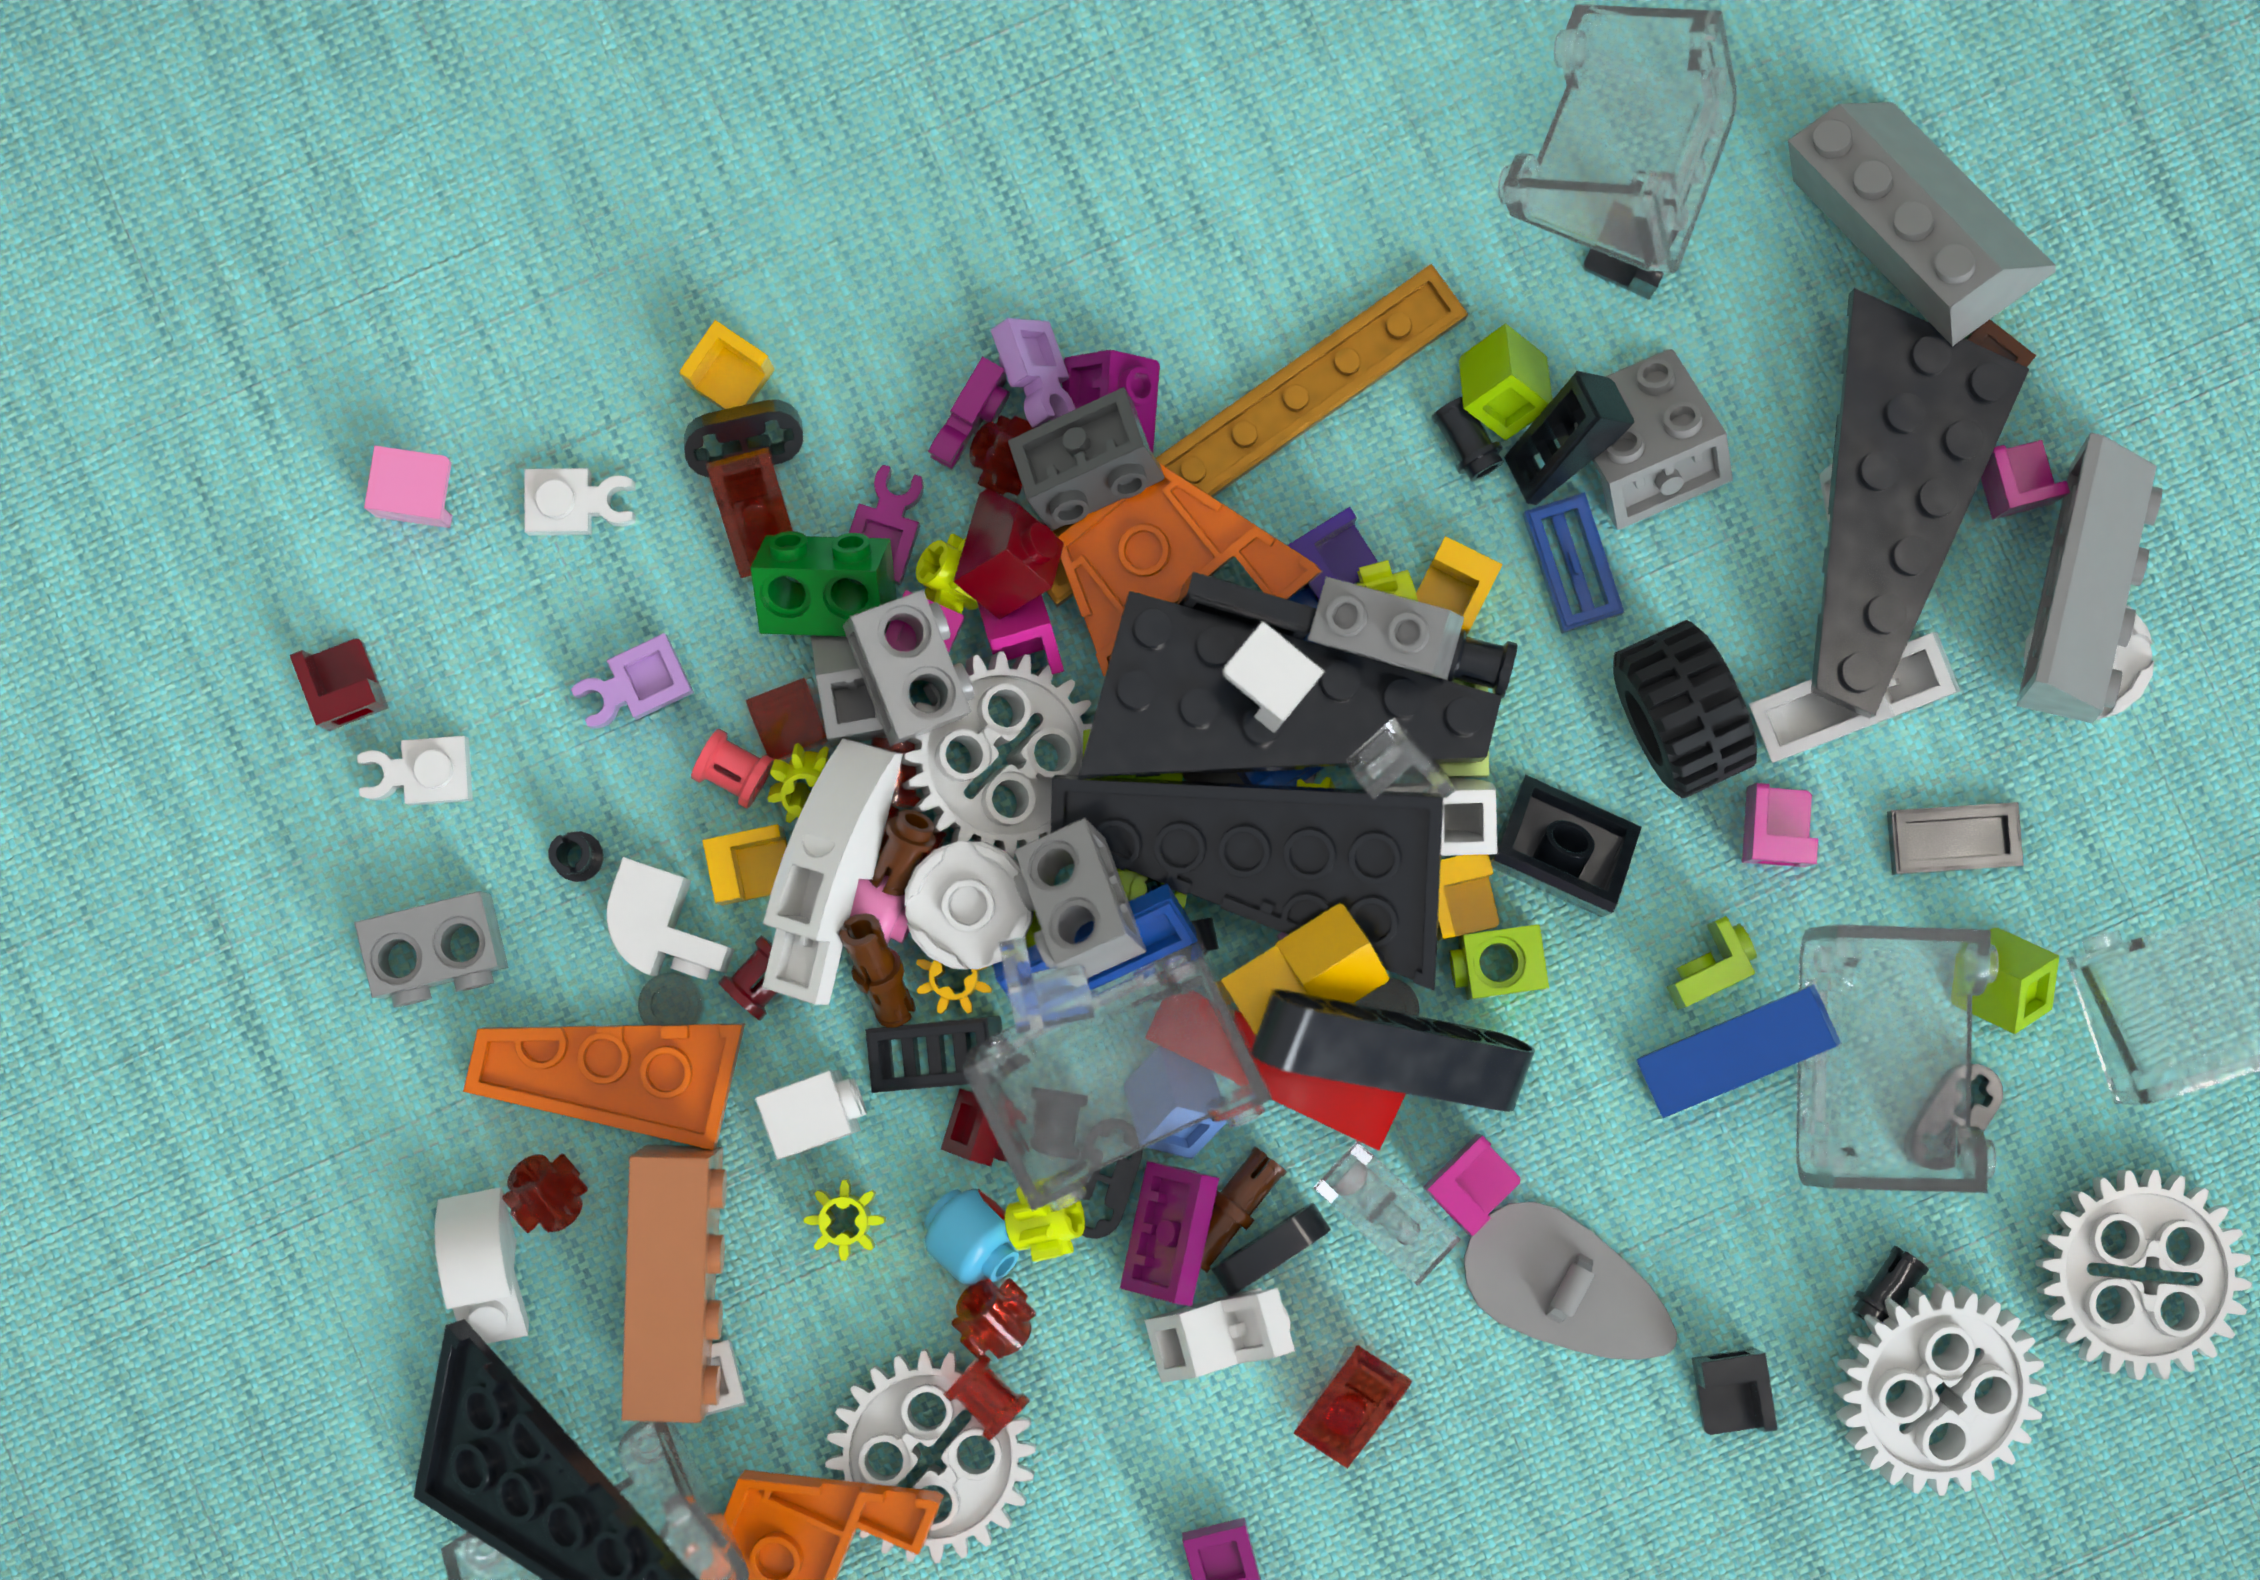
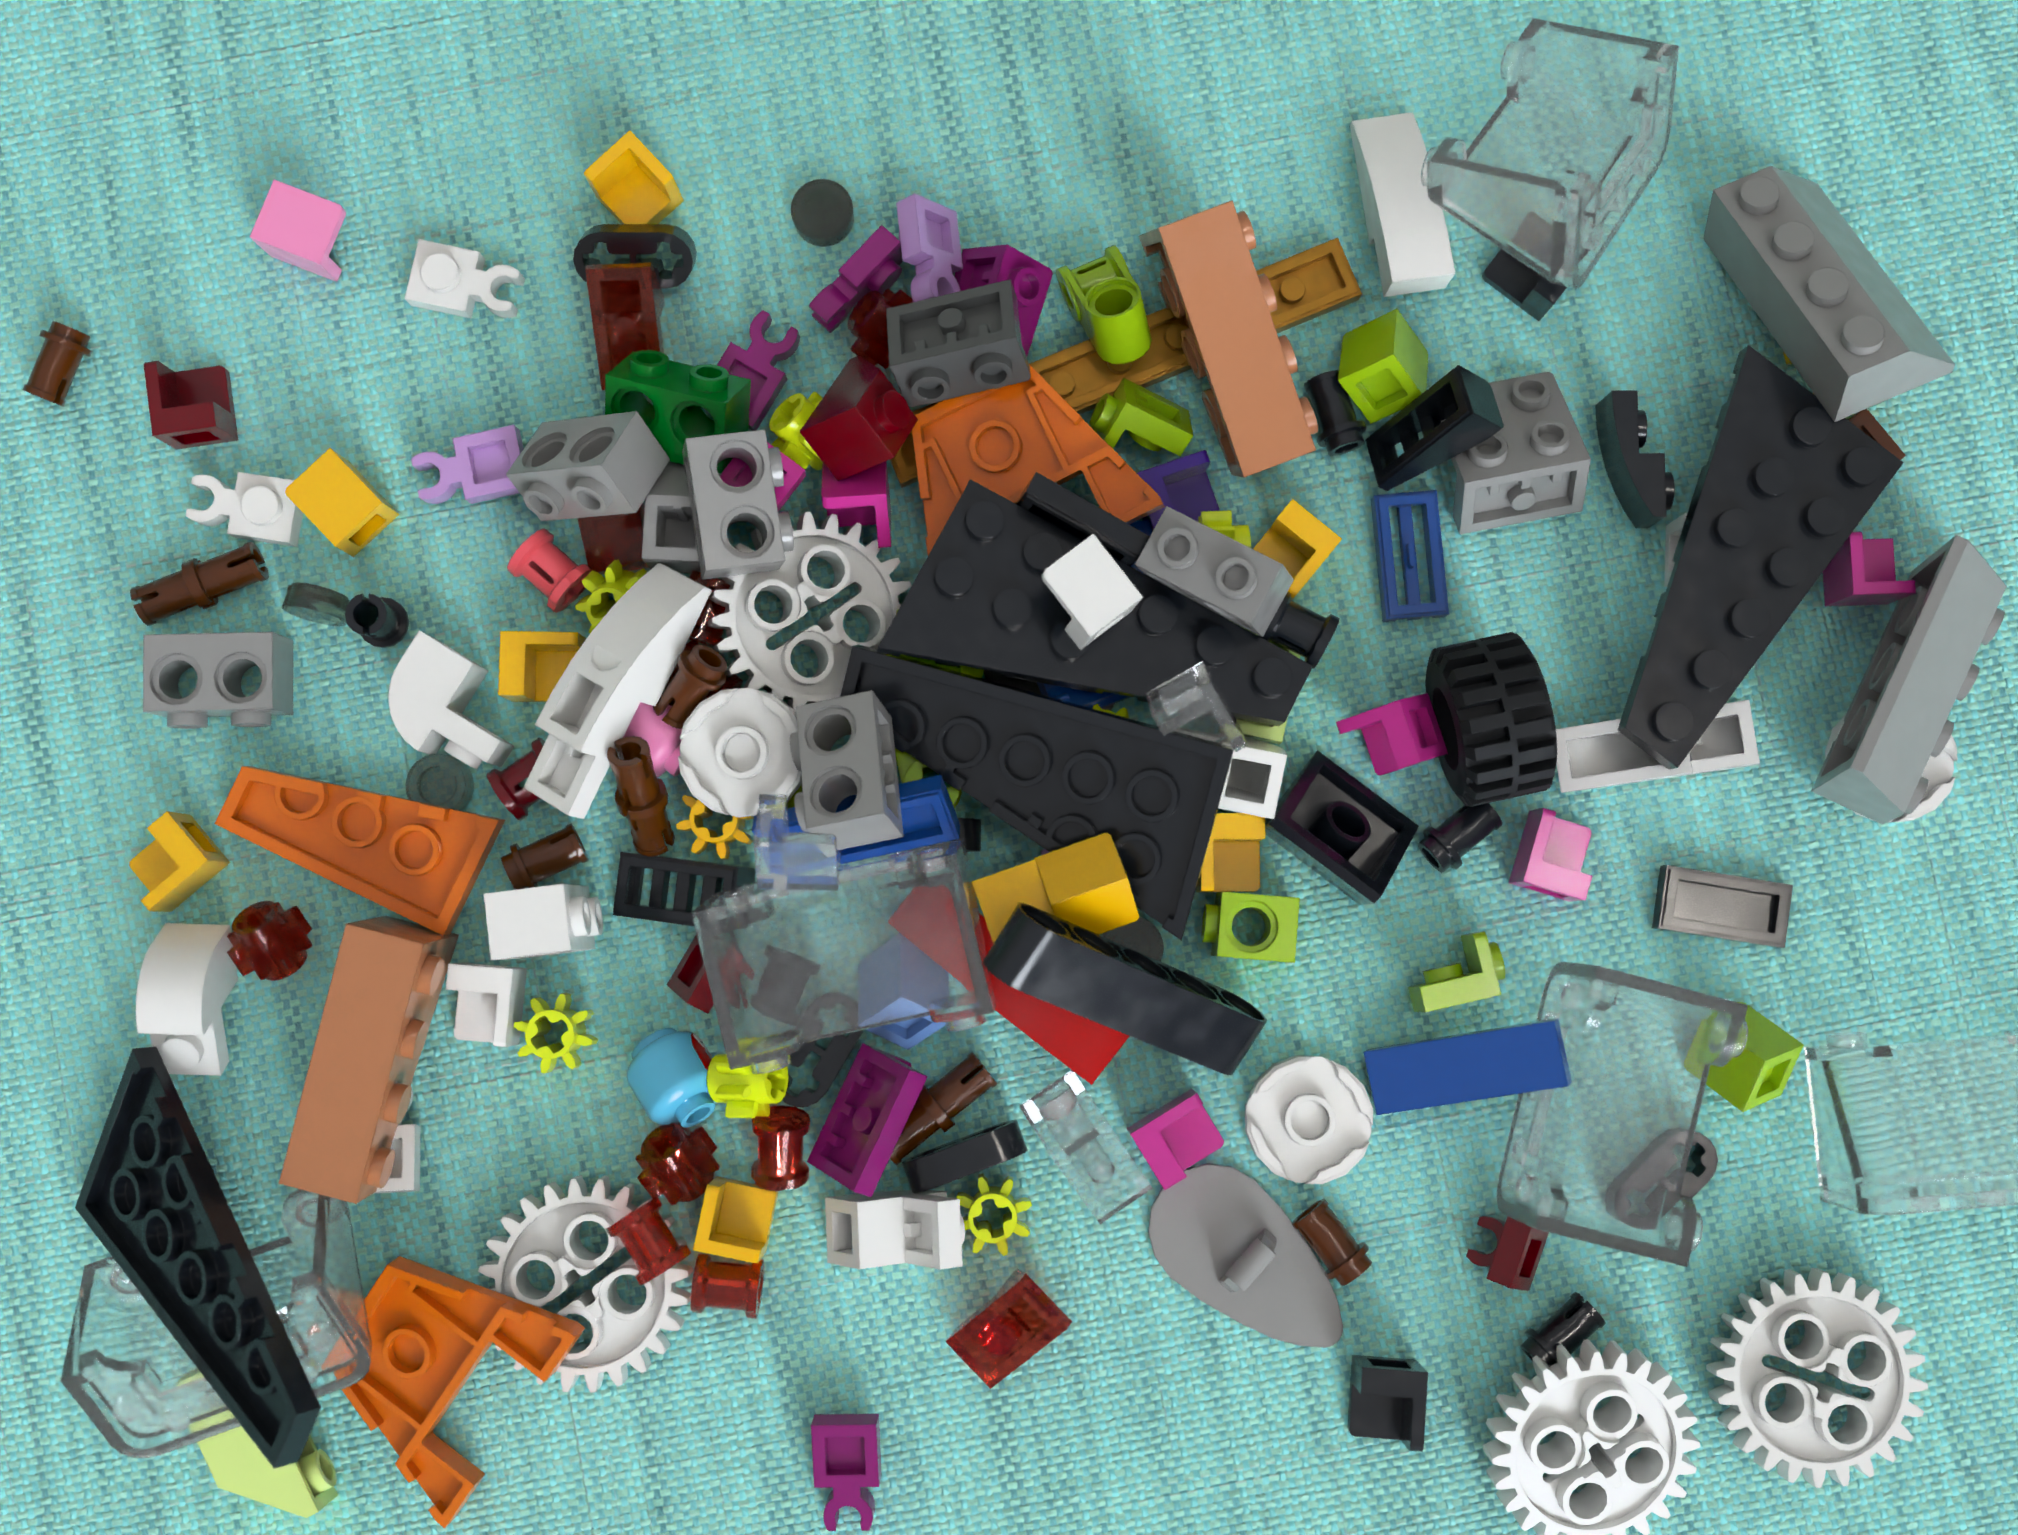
camera: 10 degrees right, 0 degrees up
(195, 672) = (57, 363): none -> reddish brown pin
(388, 859) = (199, 583): none -> reddish brown pin
(430, 1138) = (176, 861): none -> yellow panel
(510, 853) = (315, 604): none -> clear smoke tile
(511, 748) = (341, 502): none -> yellow panel
(752, 660) = (588, 467): none -> light grey brick
(769, 1206) = (487, 1002): none -> white panel
(792, 1052) = (544, 858): none -> reddish brown pin
(916, 351) = (822, 212): none -> clear smoke tile
(1063, 1360) = (735, 1220): none -> yellow panel
(1069, 1426) = (727, 1285): none -> clear red bush
(1091, 1282) = (781, 1149): none -> clear red bush
(1221, 385) = (1107, 306): none -> lime piece
(1284, 485) = (1146, 416): none -> lime bracket
(1329, 1301) = (1002, 1198): none -> neon yellow gear
(1351, 392) = (1233, 338): none -> nougat wedge
(1498, 246) = (1398, 214): none -> white slope
(1597, 1138) = (1308, 1119): none -> white tile
(1601, 741) = (1398, 733): none -> dark pink panel
(1647, 1252) = (1332, 1243): none -> reddish brown pin
(1681, 828) = (1458, 835): none -> black pin
(1778, 437) = (1635, 477): none -> black slope
(1827, 1220) = (1516, 1252): none -> dark red tile

